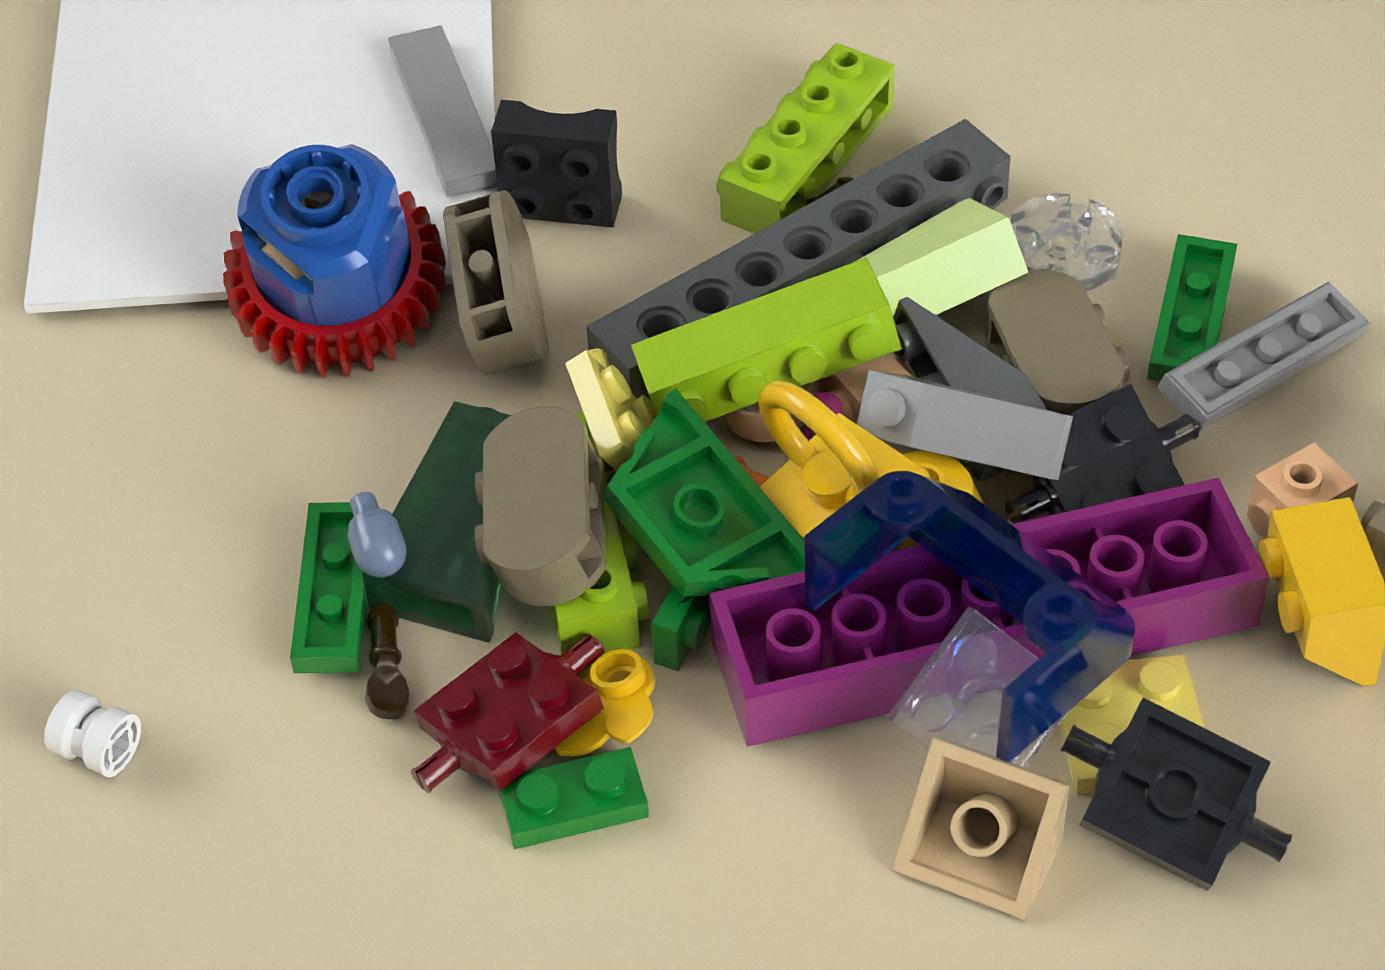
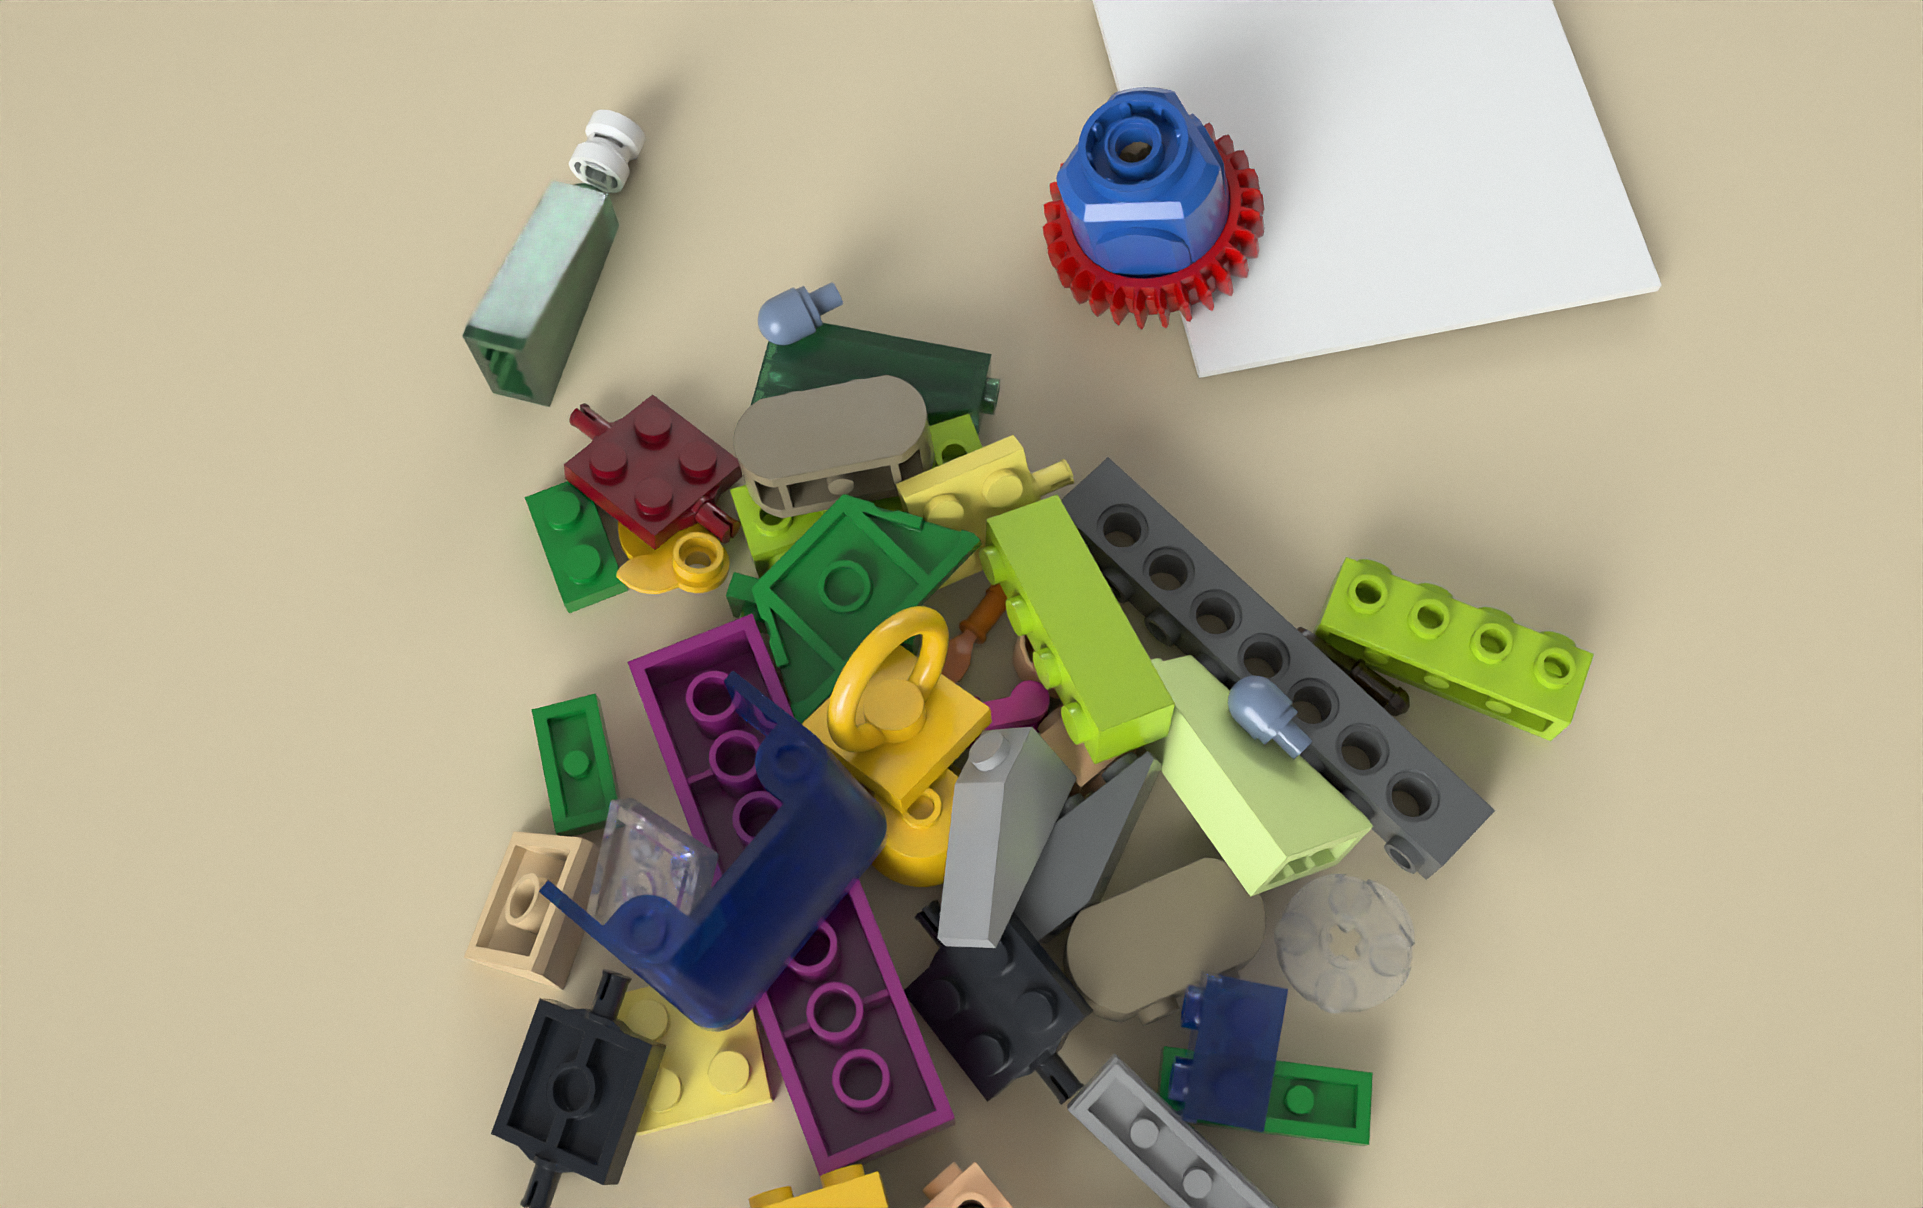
camera: 80 degrees right, 20 degrees up
(271, 787) = (542, 293): none -> clear green slope
(329, 596) = (730, 306): green plate -> none
(386, 688) = (685, 370): dark brown piece -> none
(444, 110) = (1414, 278): light grey tile -> none
(495, 283) = (1148, 361): dark tan brick -> none
(558, 163) = (1332, 393): black brick -> none
(832, 796) = (576, 764): none -> green plate
(867, 235) = (1266, 714): none -> sand blue cylinder
(1161, 303) = (1229, 1051): none -> clear blue bracket

